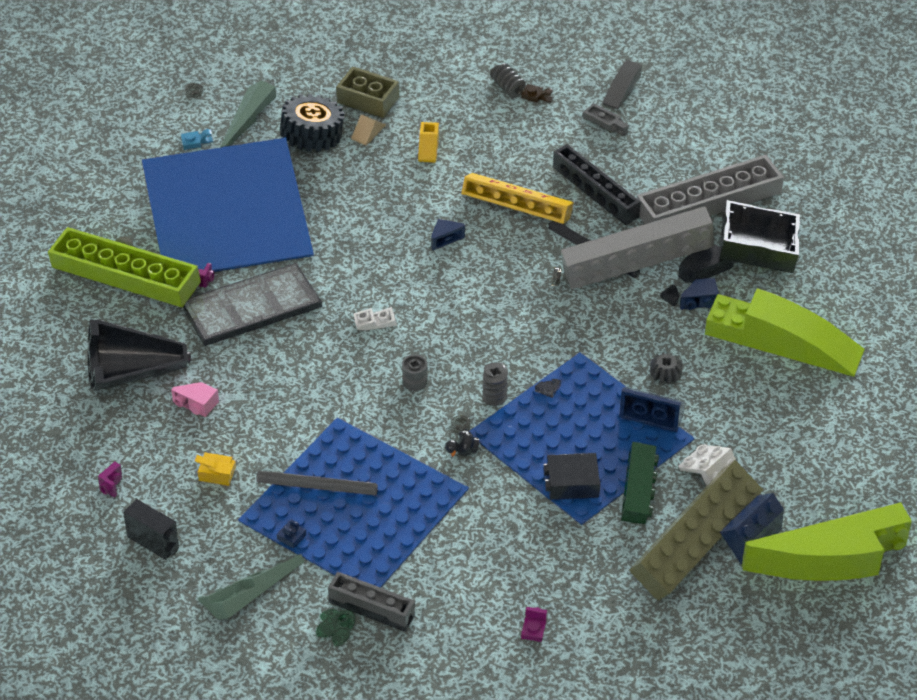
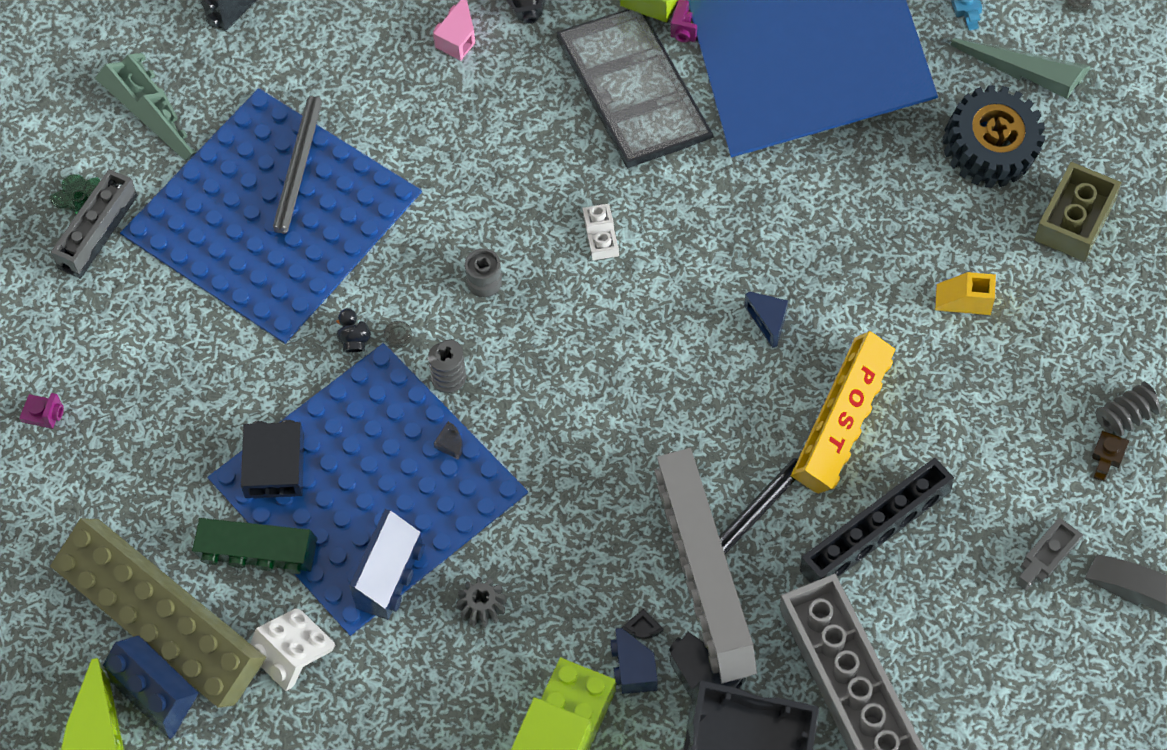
camera: 95 degrees right, 15 degrees up
(215, 468) = (336, 56): yellow piece -> none
(291, 534) = (216, 138): dark blue tile -> none
(366, 129) = (1004, 218): tan slope -> none

